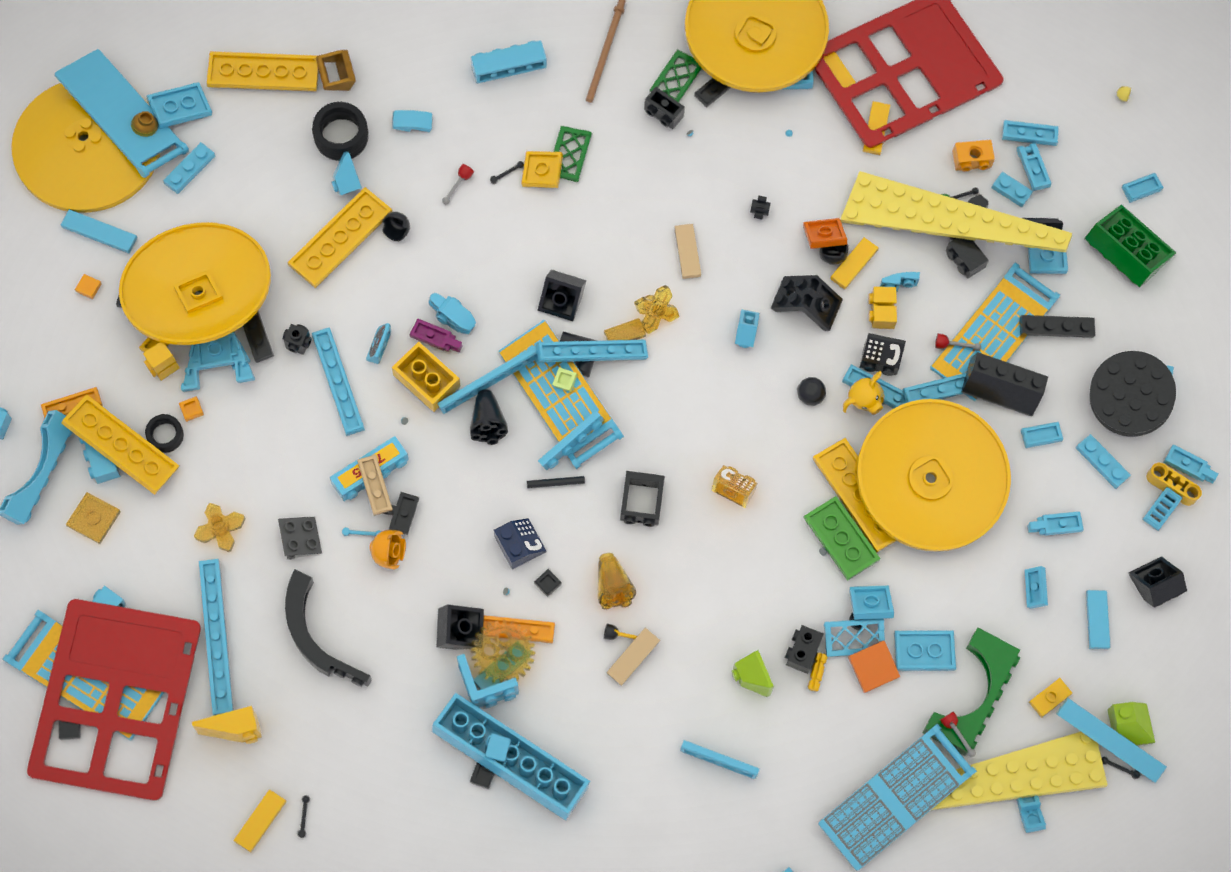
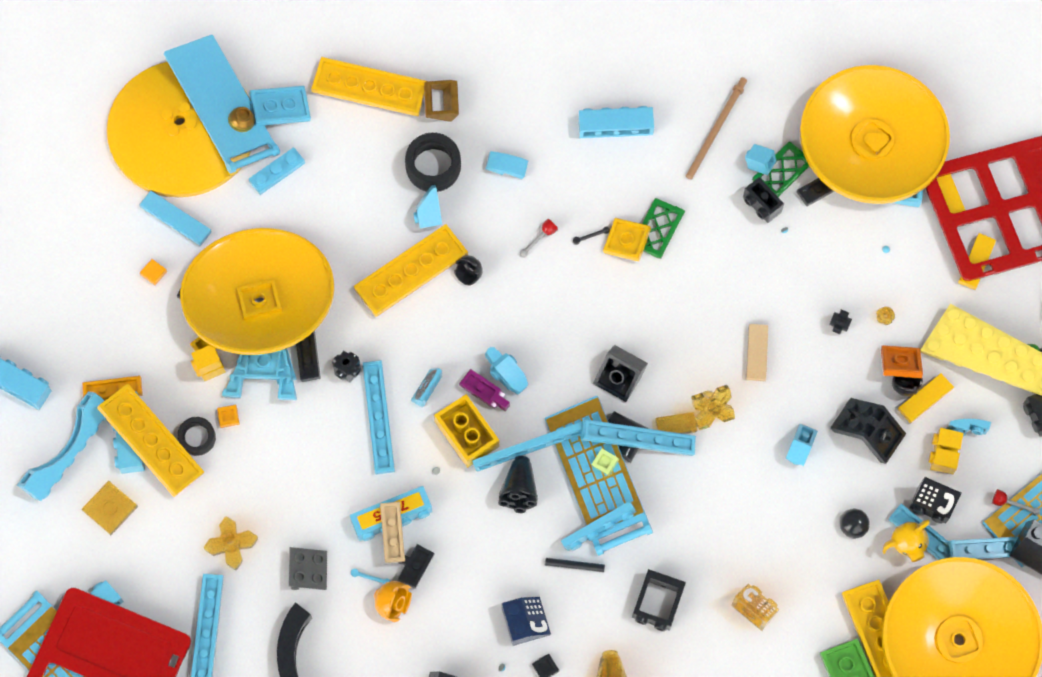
camera: 15 degrees right, 0 degrees up
(653, 70) = (760, 159): none -> medium azure brick
(803, 190) = (885, 311): none -> clear yellow plate

